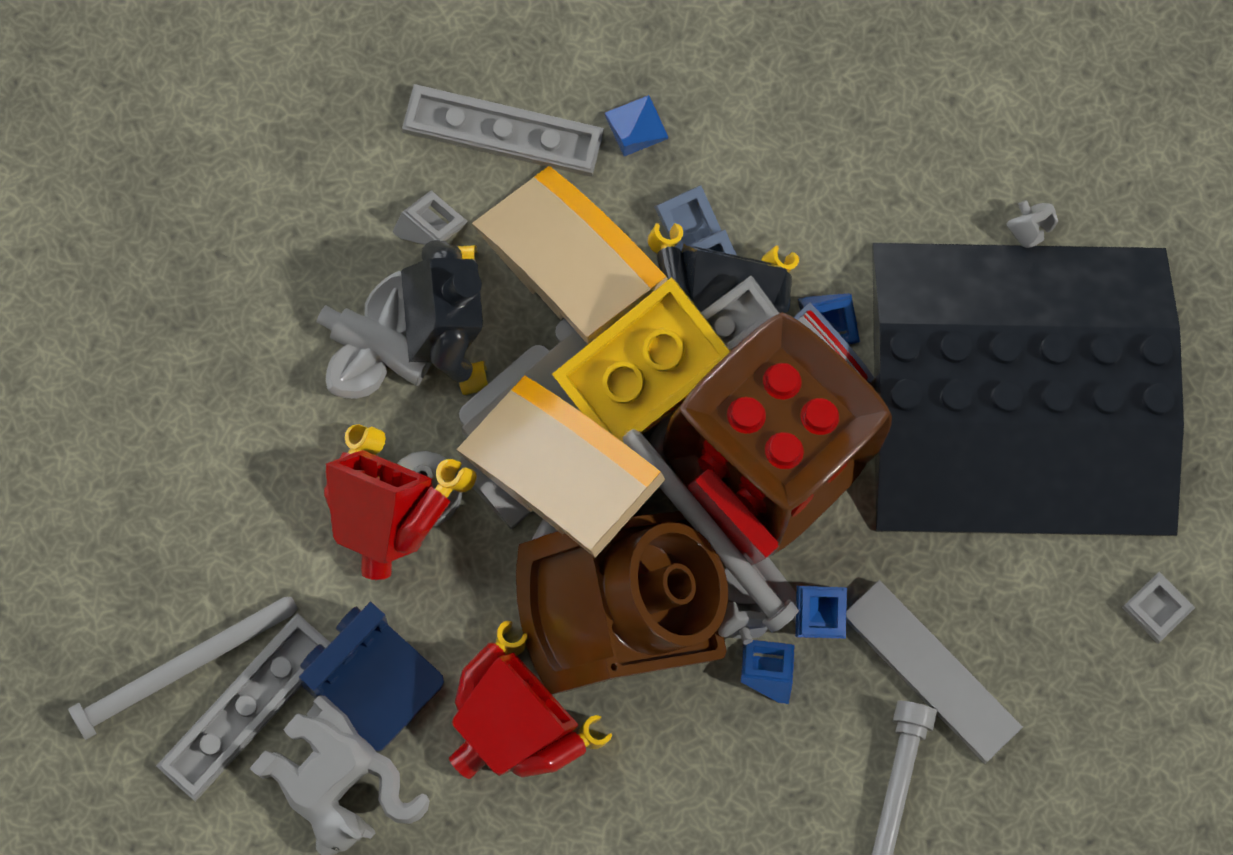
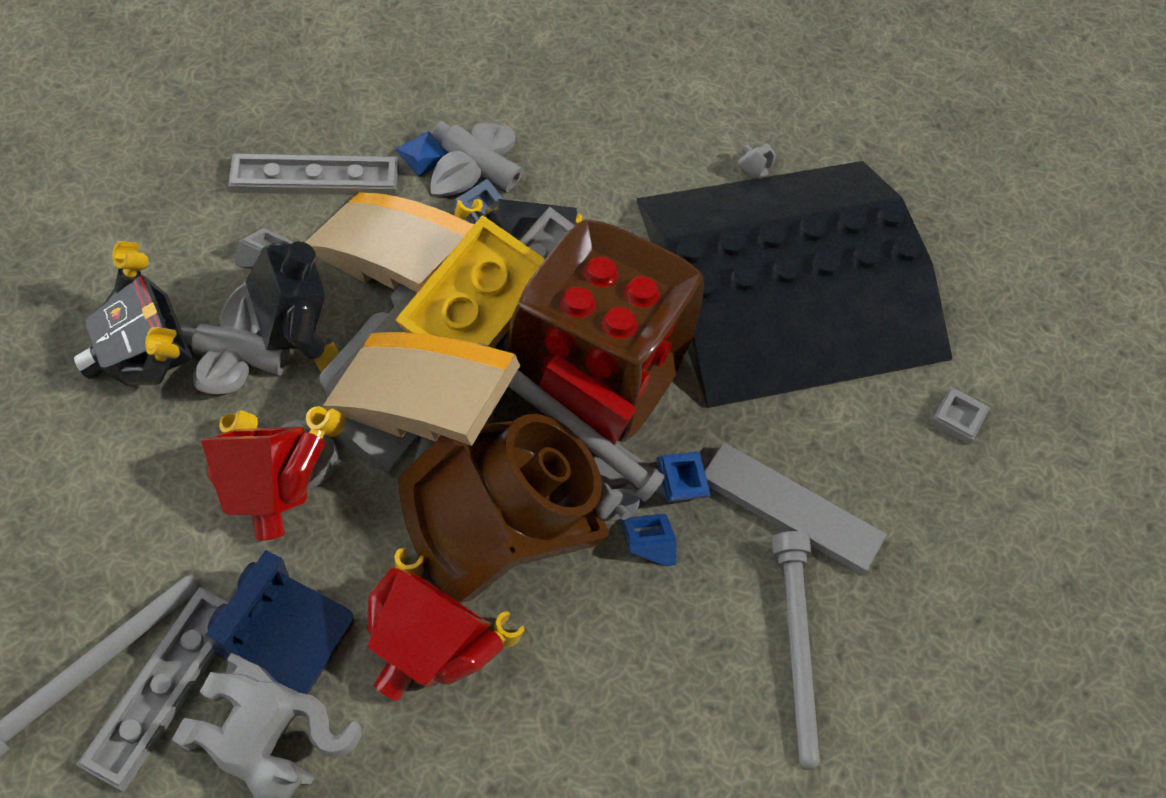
camera: 15 degrees left, 15 degrees down
(274, 306) = (135, 328): none -> black torso
(694, 148) = (474, 157): none -> light grey plant

